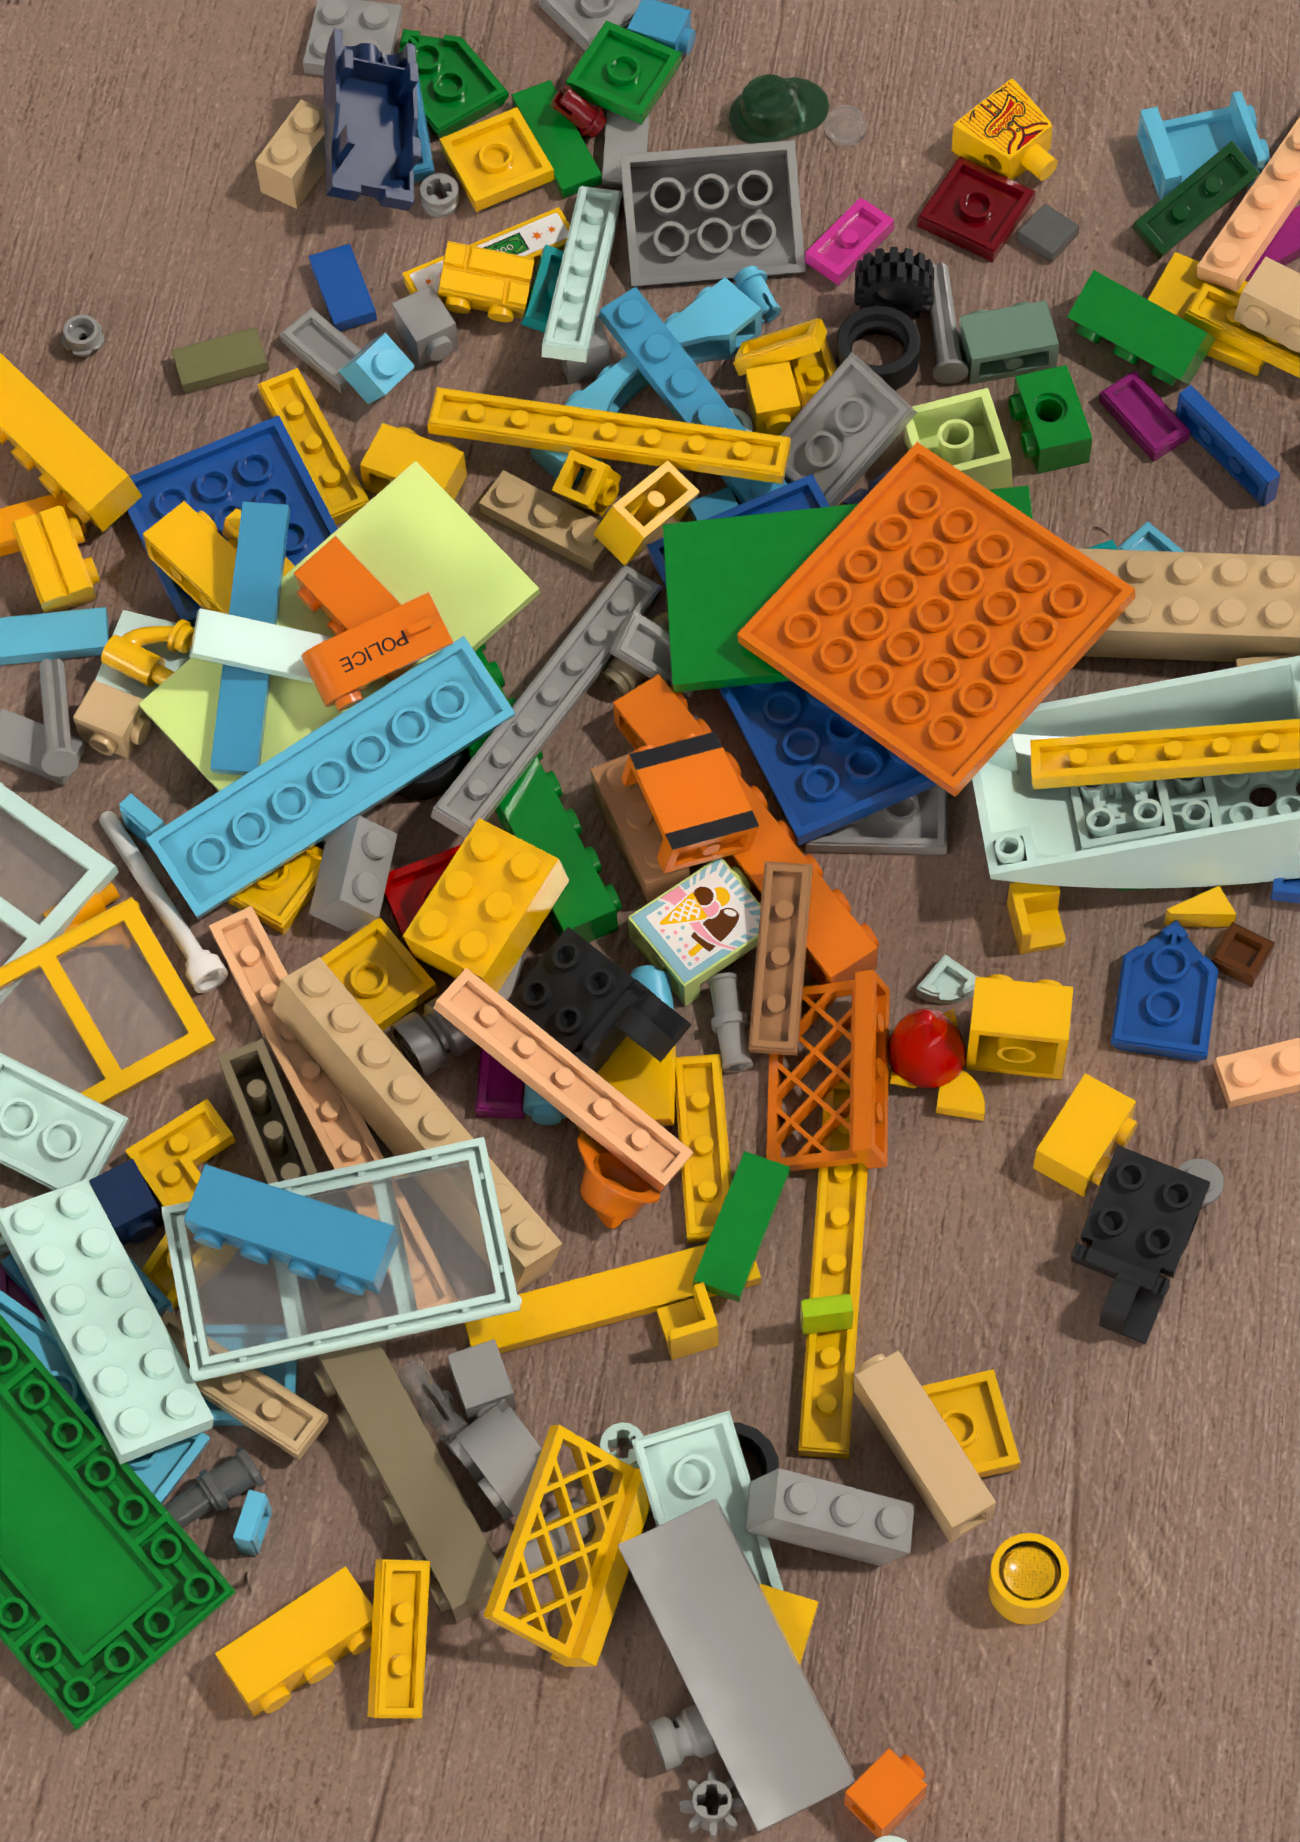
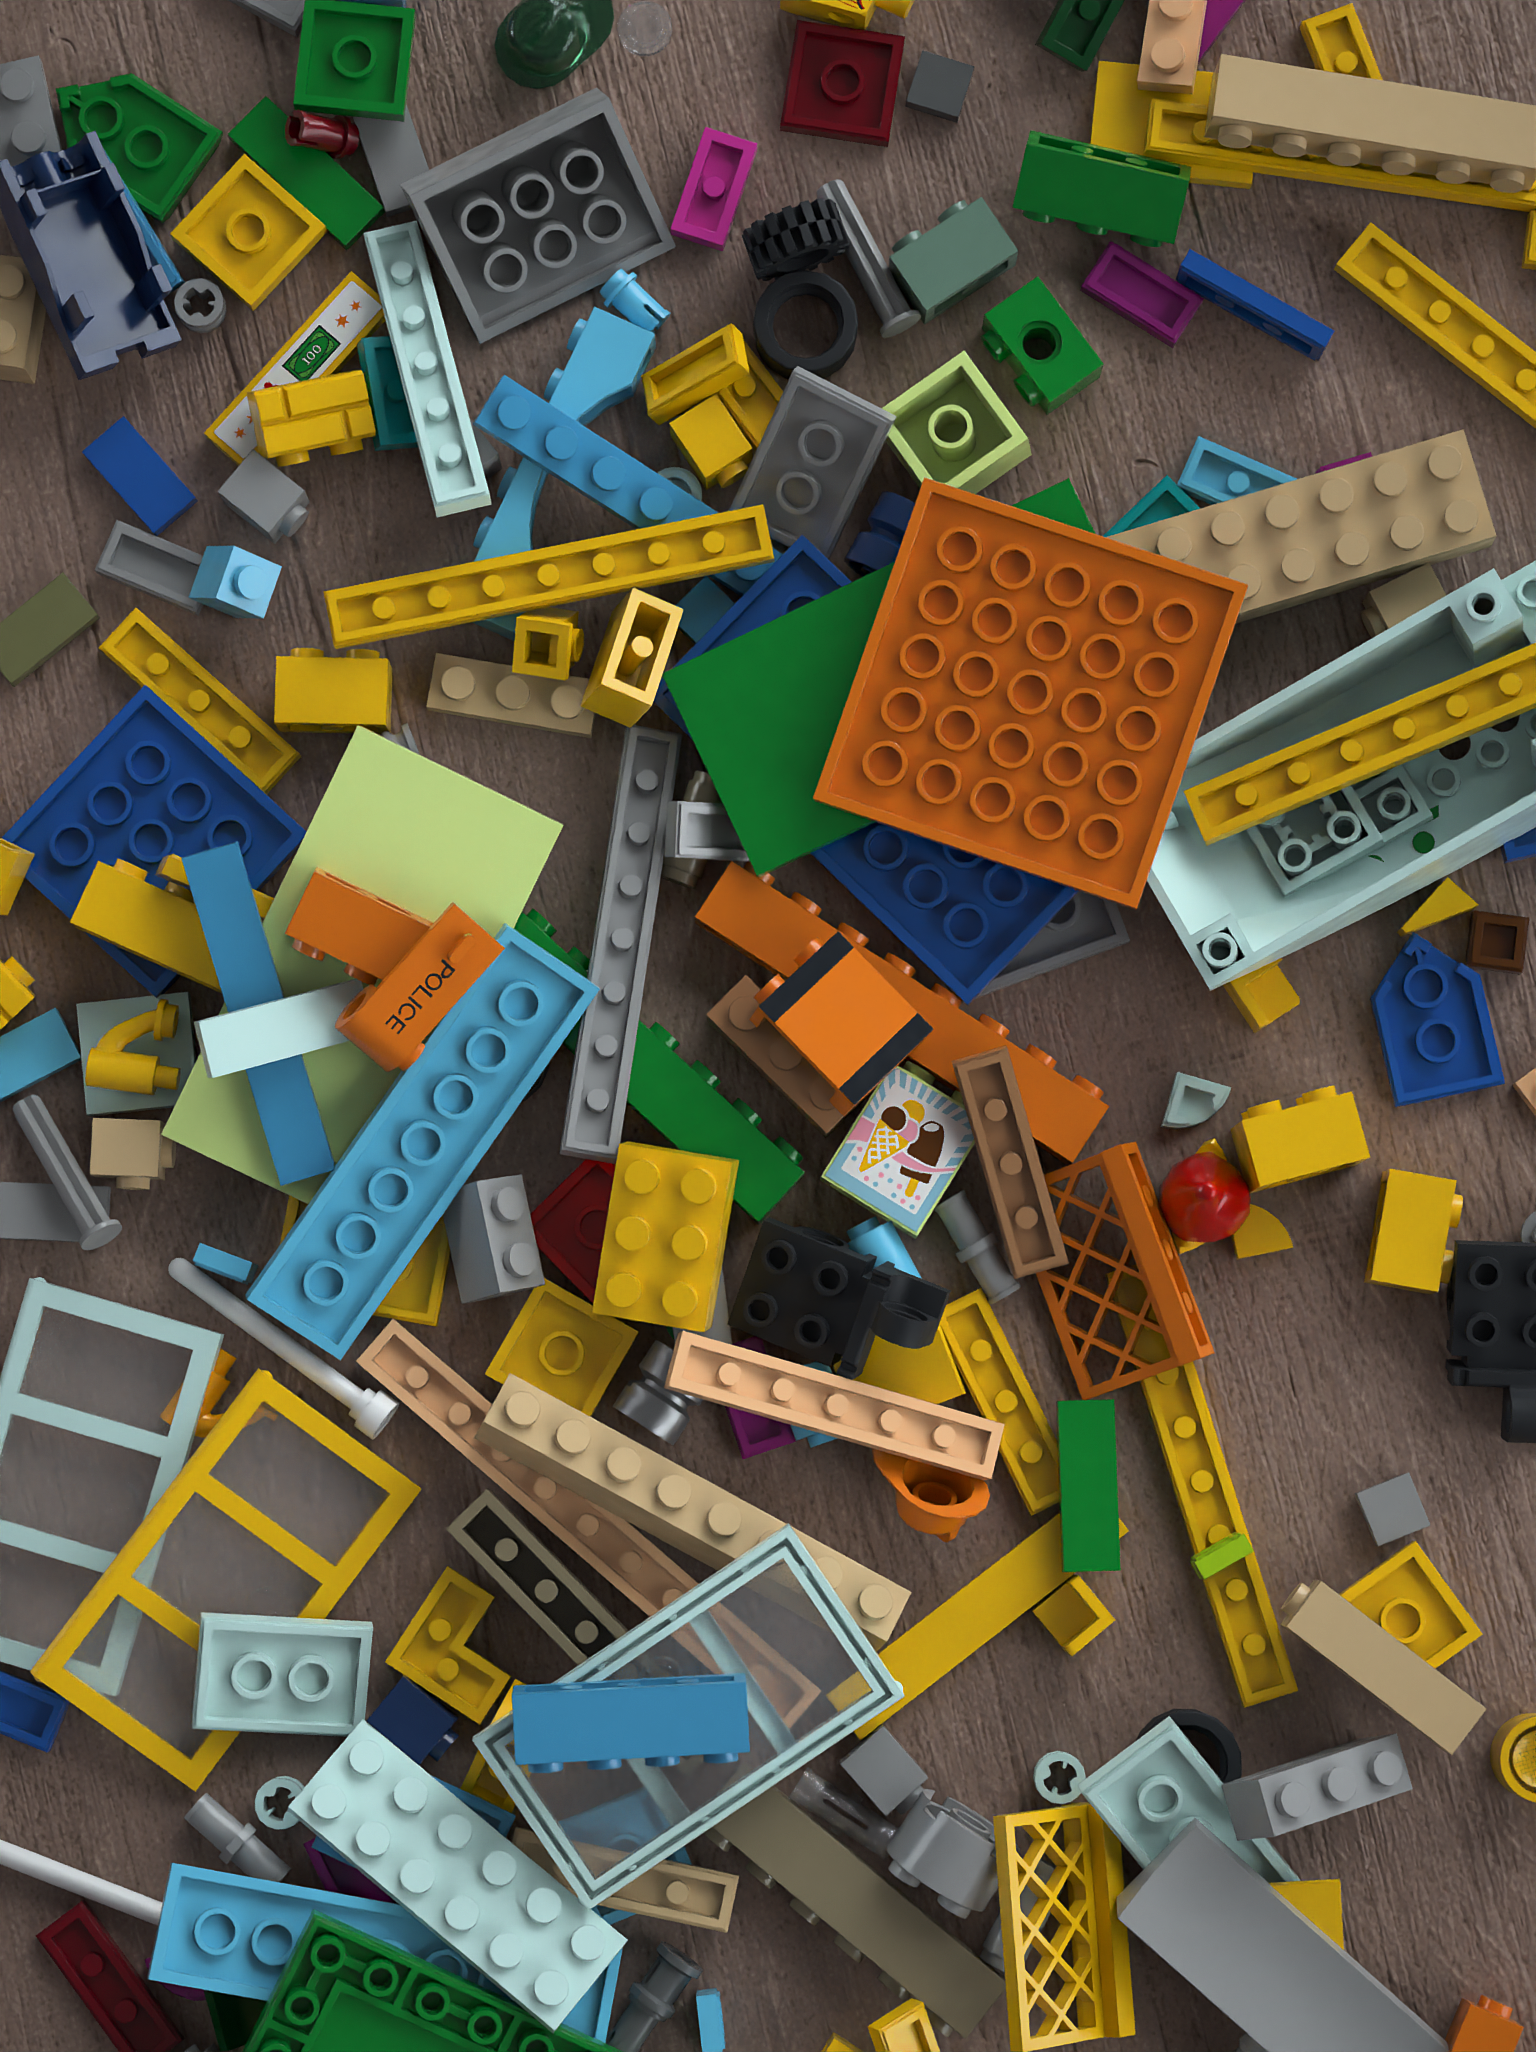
camera: 25 degrees left, 20 degrees up
(985, 1344) = (1392, 1509): none -> light grey tile

